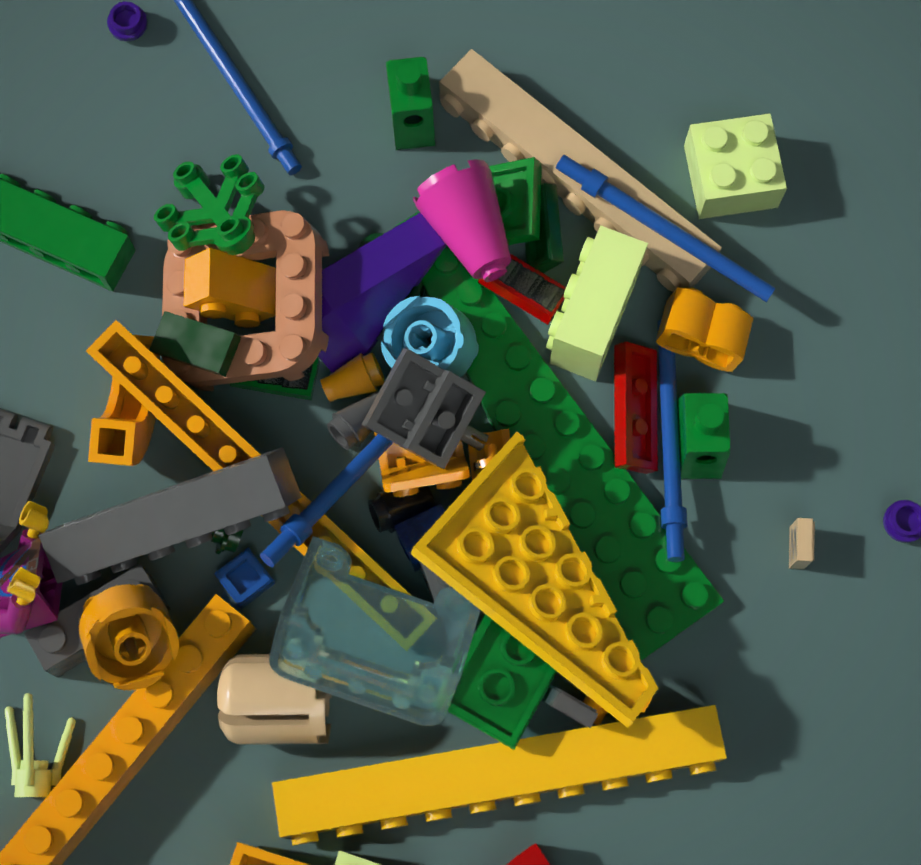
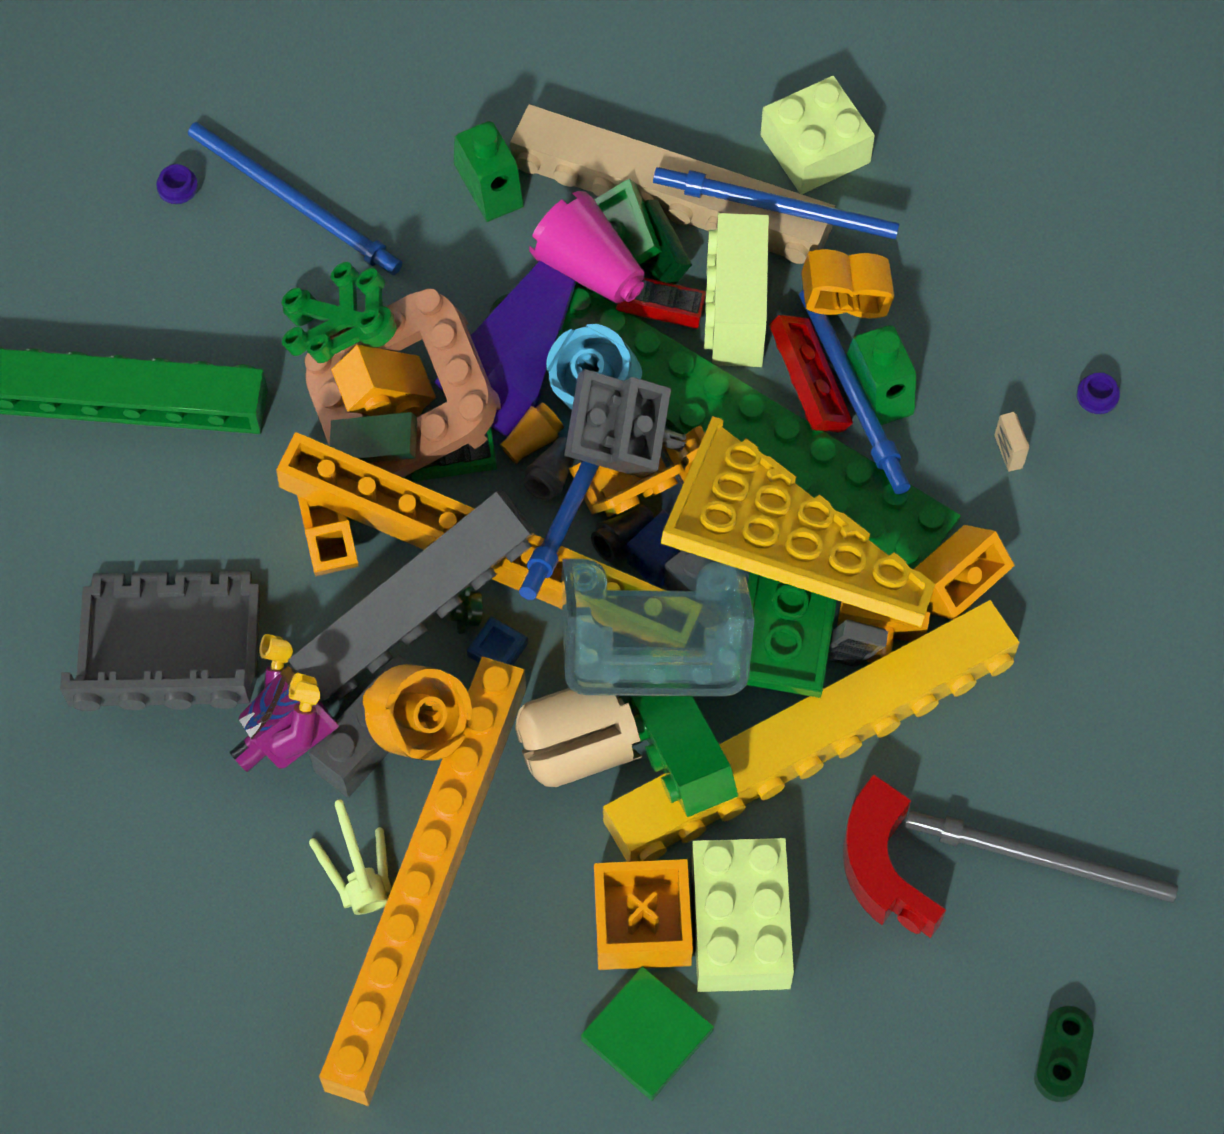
camera: 20 degrees left, 10 degrees down
(361, 766) = (685, 751): none -> green brick
(698, 663) = (964, 569): none -> light orange brick

